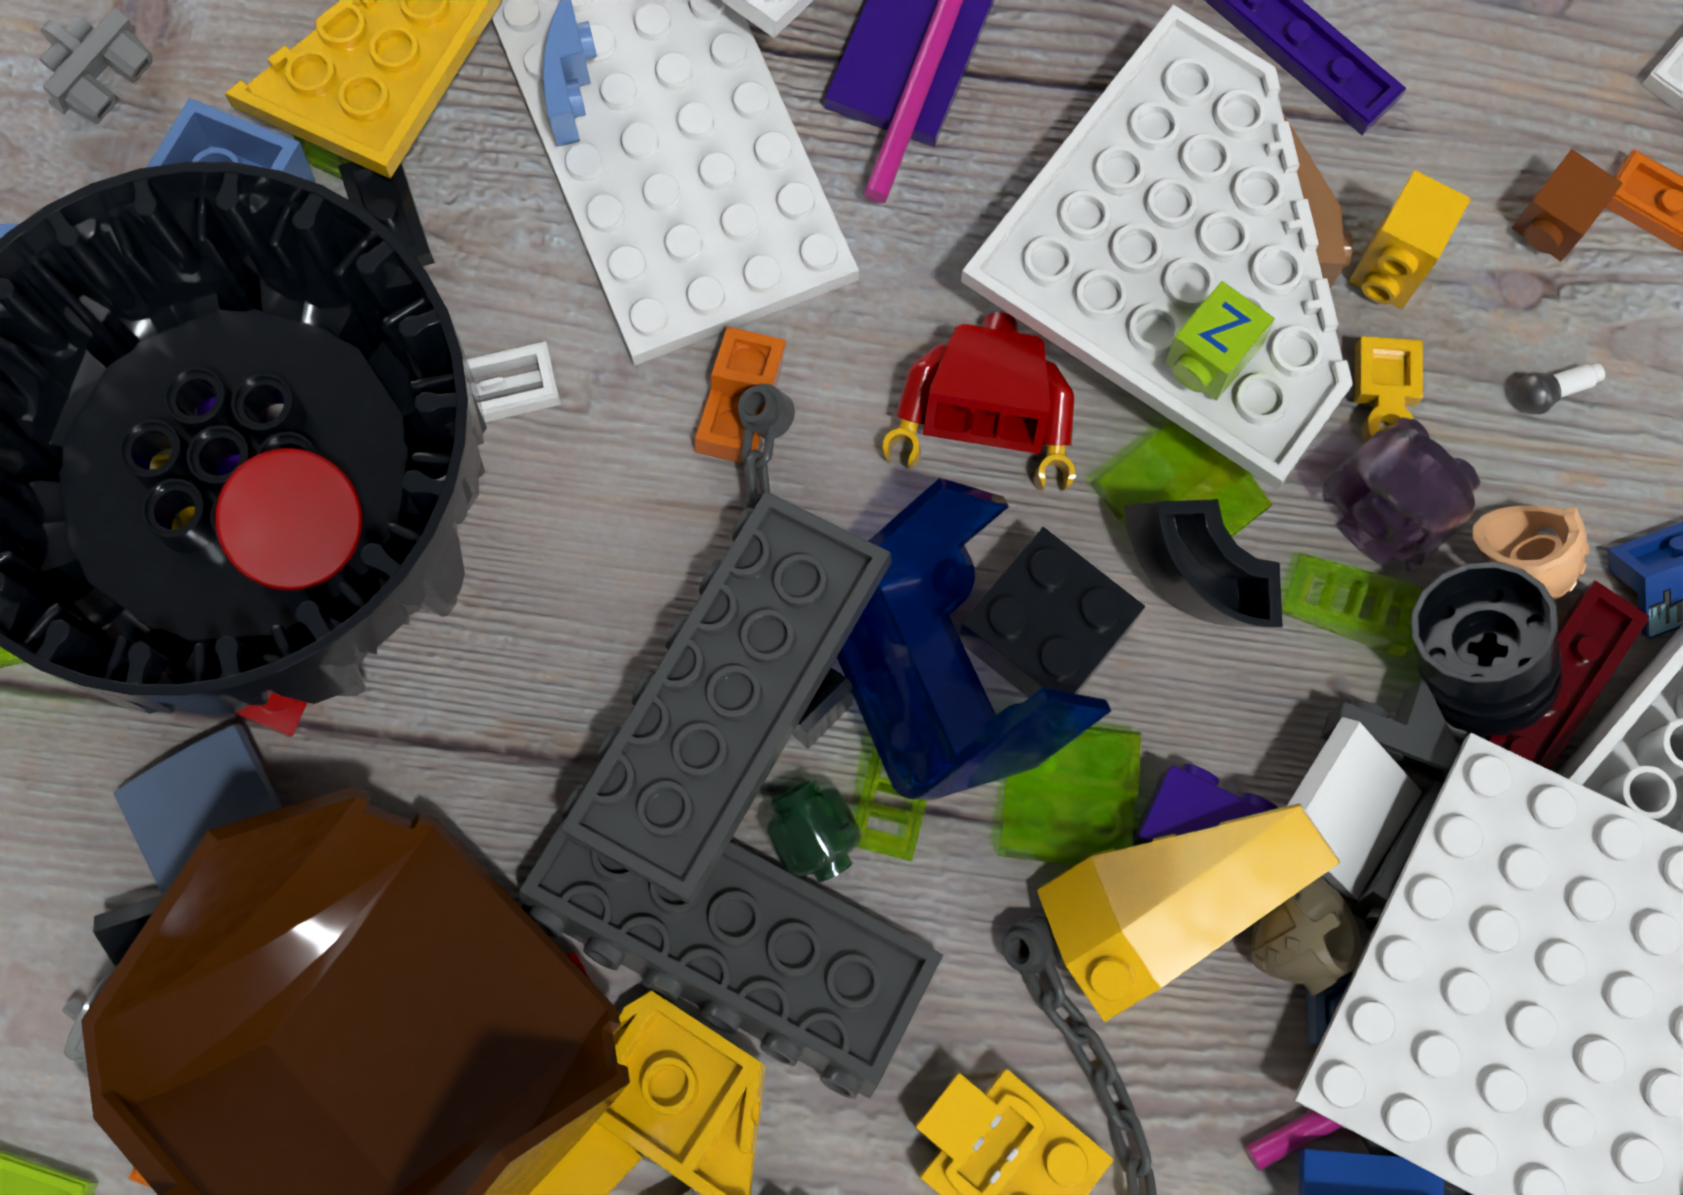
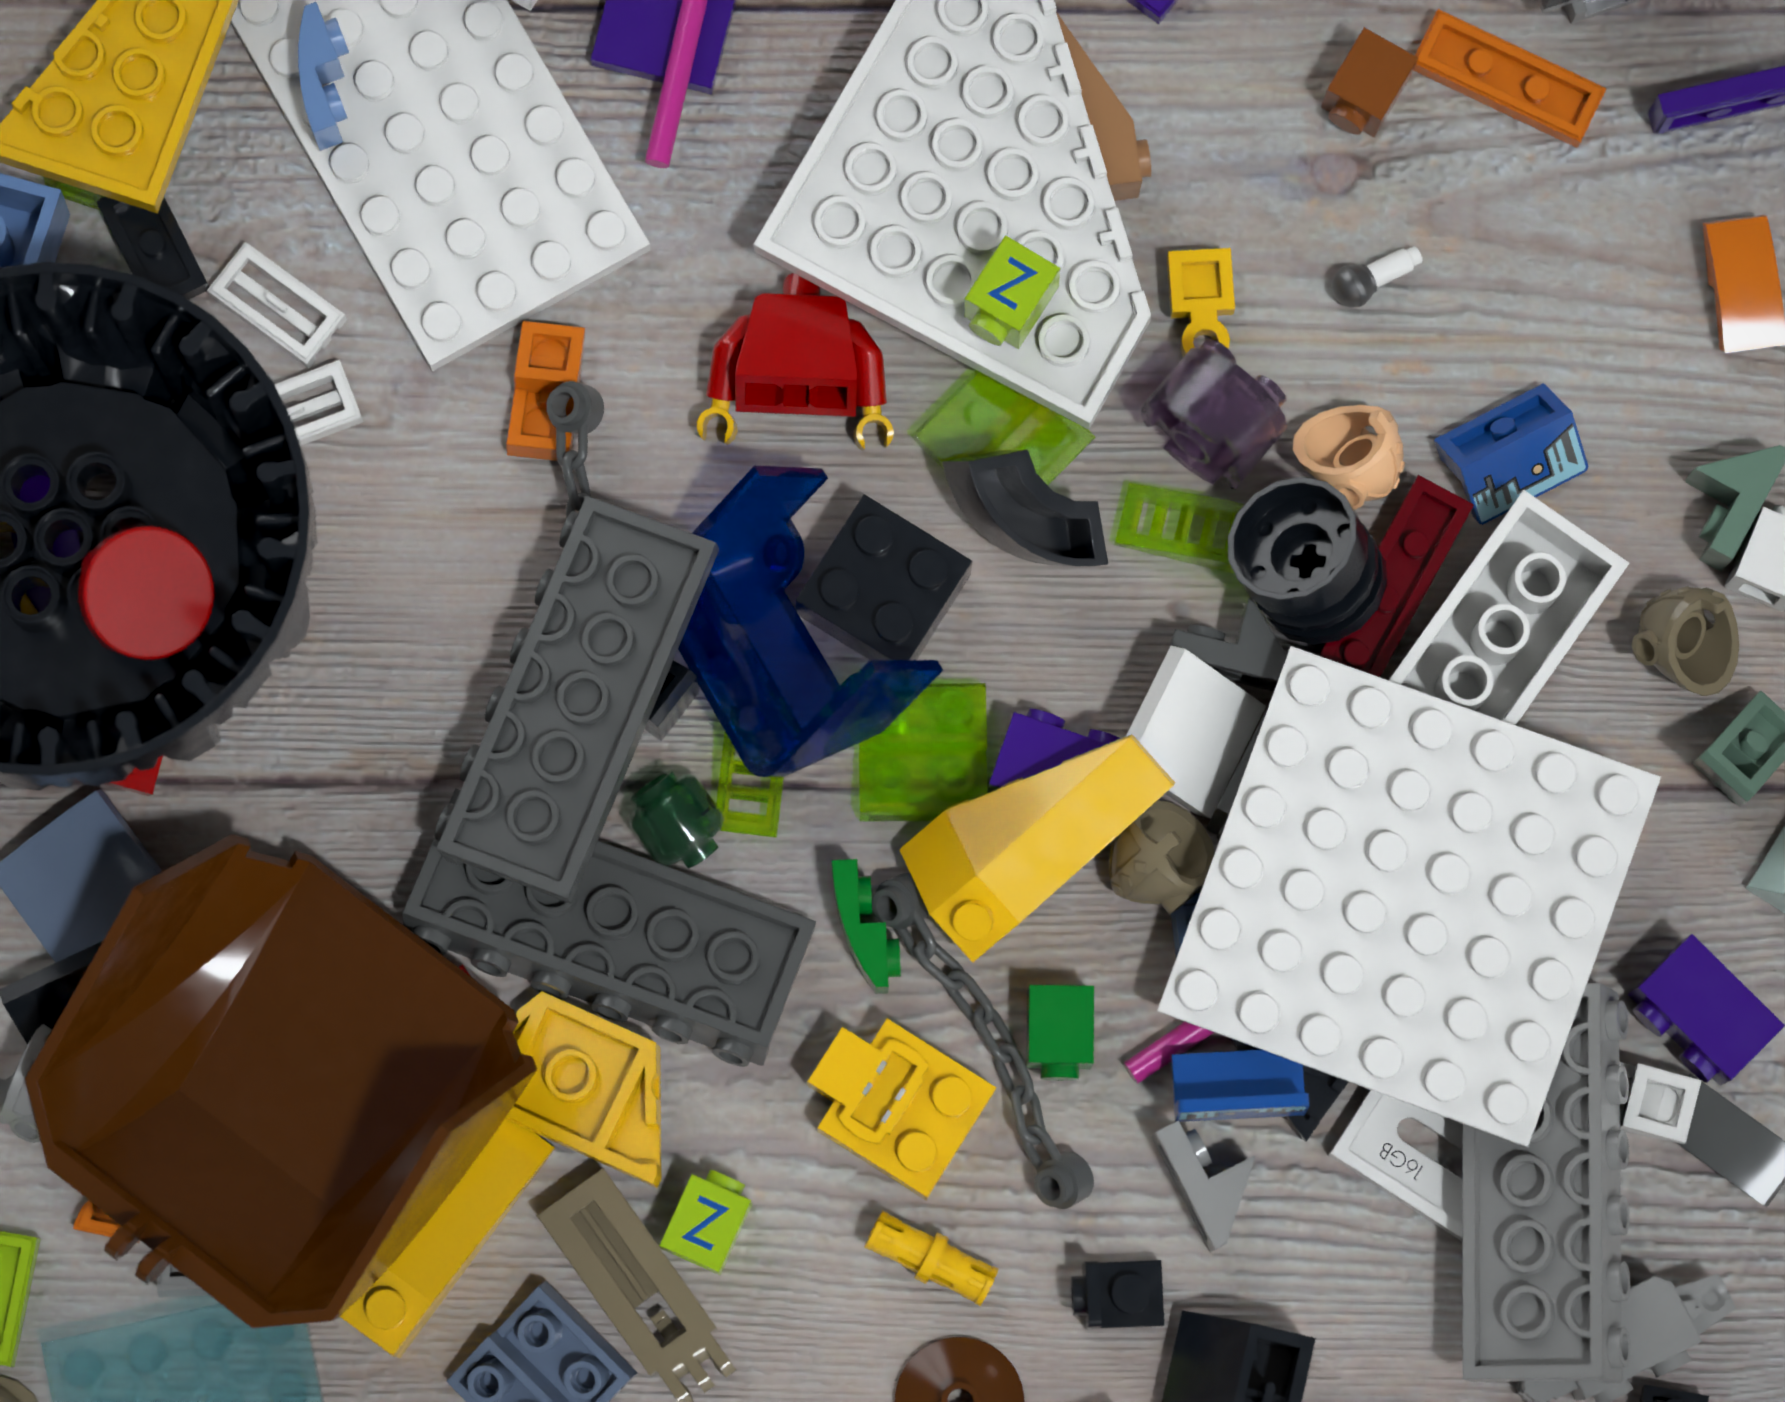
camera: 10 degrees left, 5 degrees up
(528, 318) = (318, 337): none -> white tile
(995, 986) = (867, 942): none -> green slope
(1185, 1104) = (1060, 1030): none -> green brick
(1409, 240) = (1203, 149): yellow brick -> none

